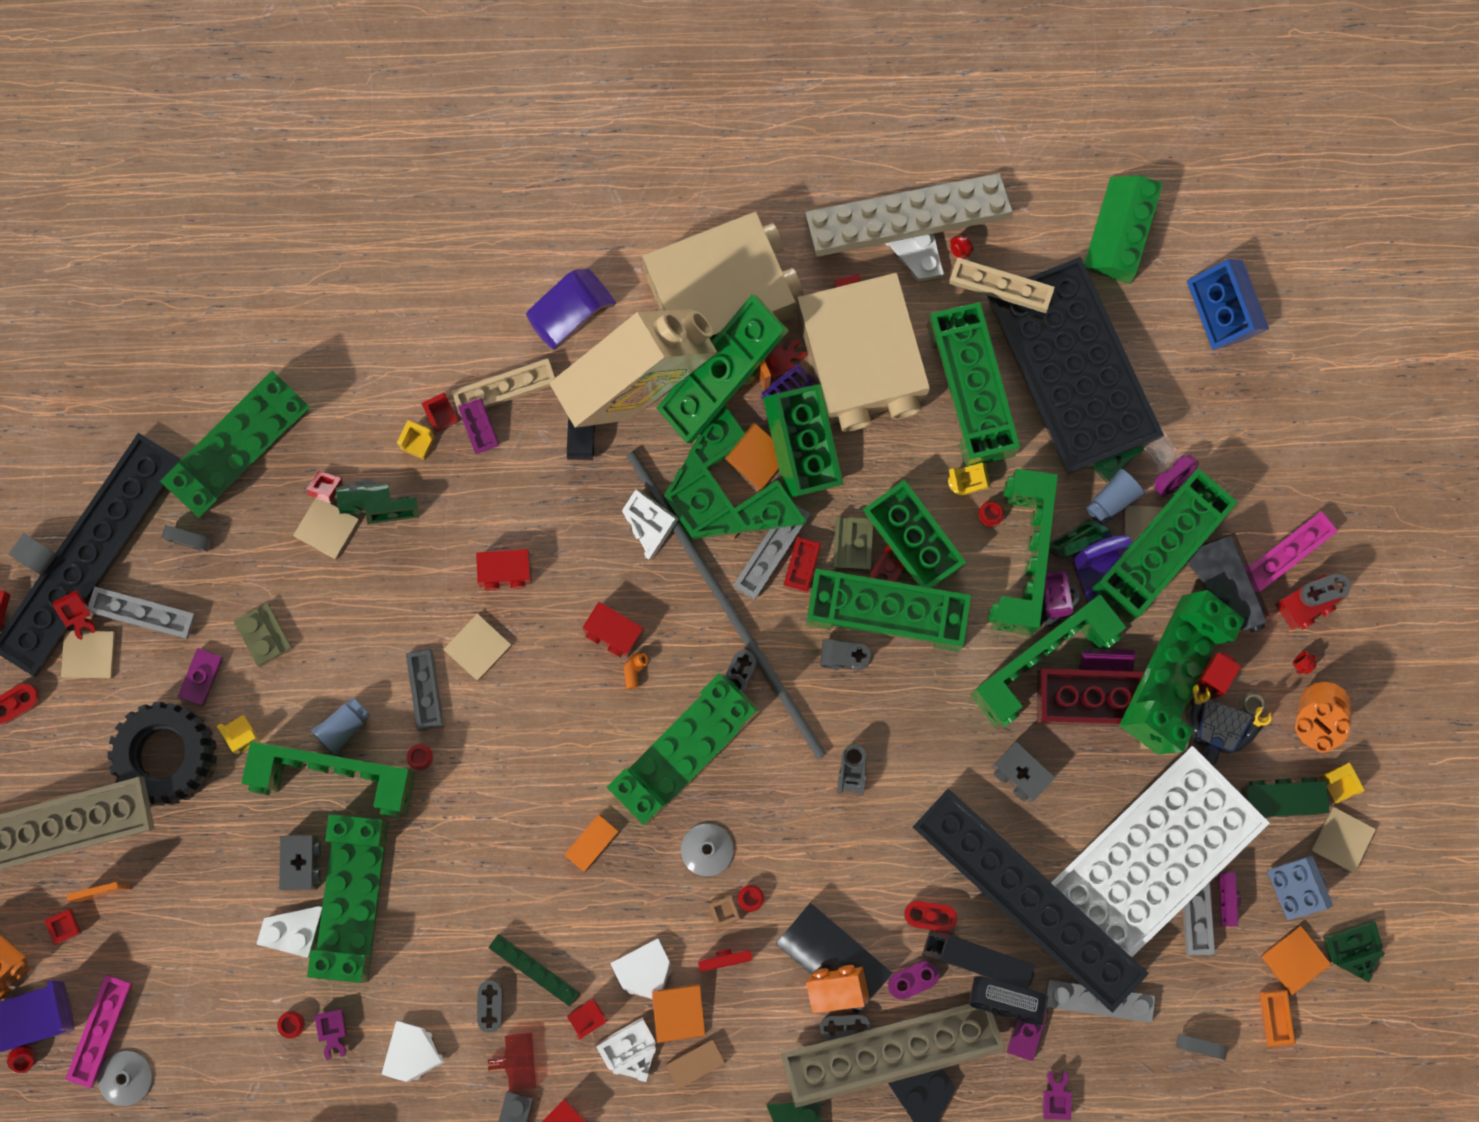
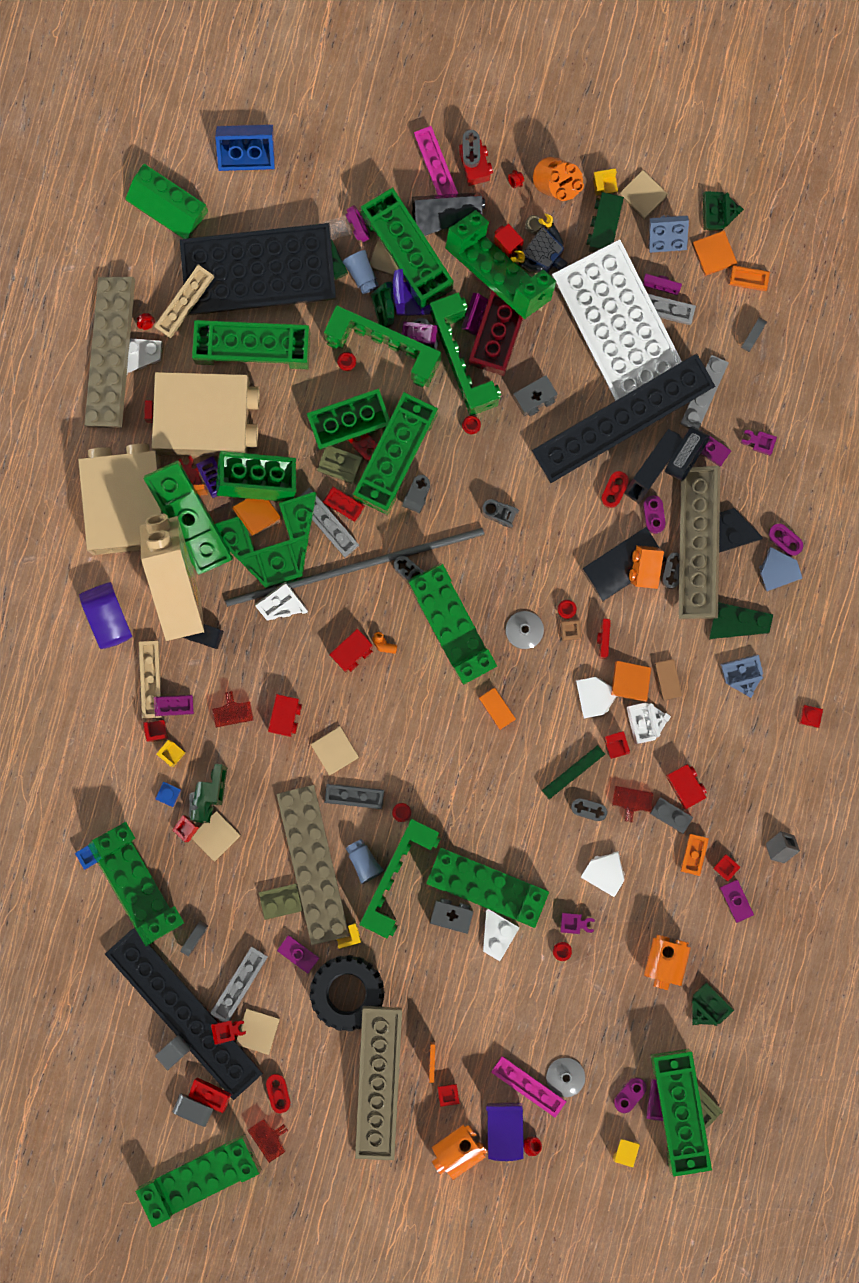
camera: 70 degrees left, 5 degrees up
(254, 373) = (86, 857): none -> blue plate
(320, 662) = (312, 865): none -> dark tan plate
(364, 453) = (168, 794): none -> blue plate
(490, 502) = (232, 712): none -> clear red plate
(958, 699) = (471, 425): none -> red plate
(969, 479) = (318, 368): yellow bracket -> none

